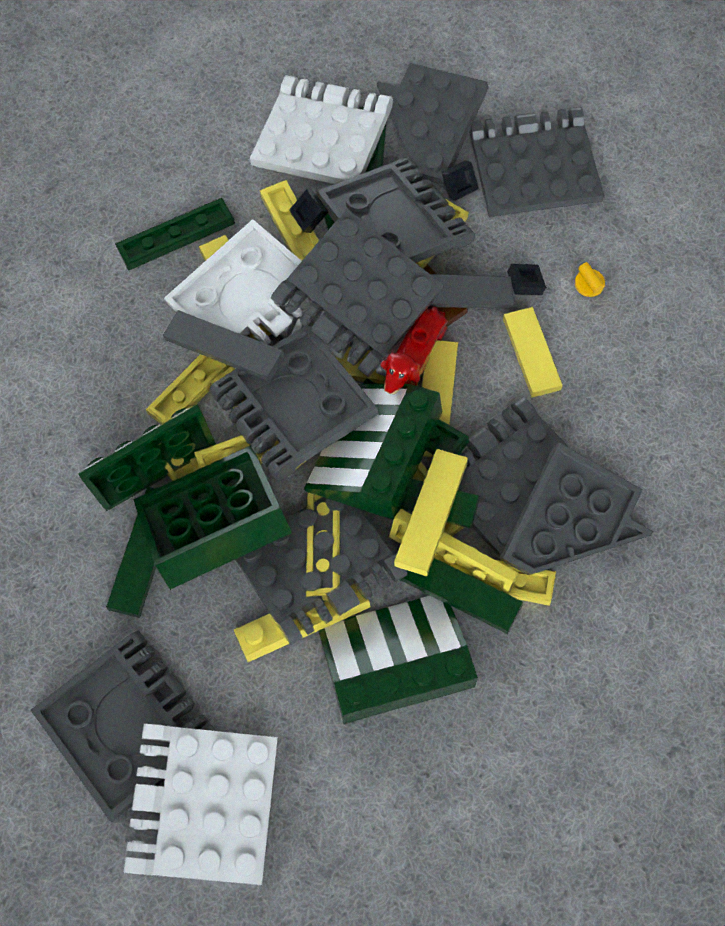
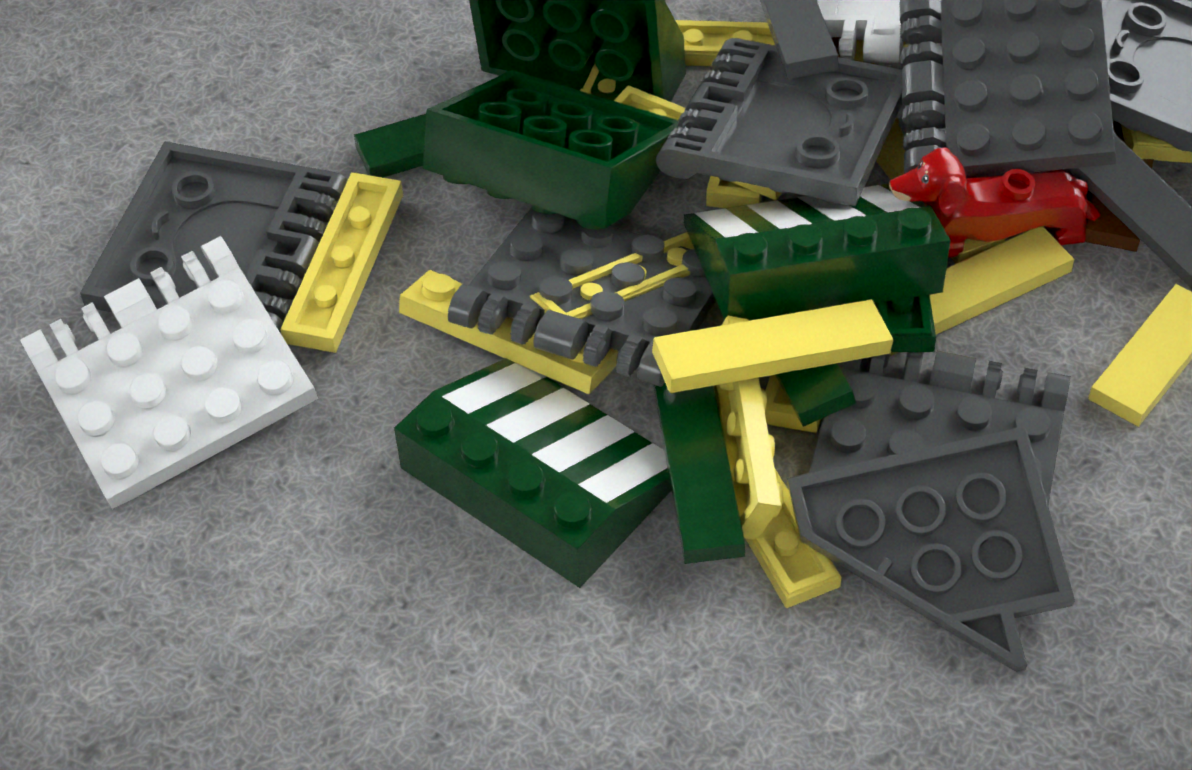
camera: 55 degrees right, 15 degrees down
(193, 668) = (342, 263): none -> light yellow plate

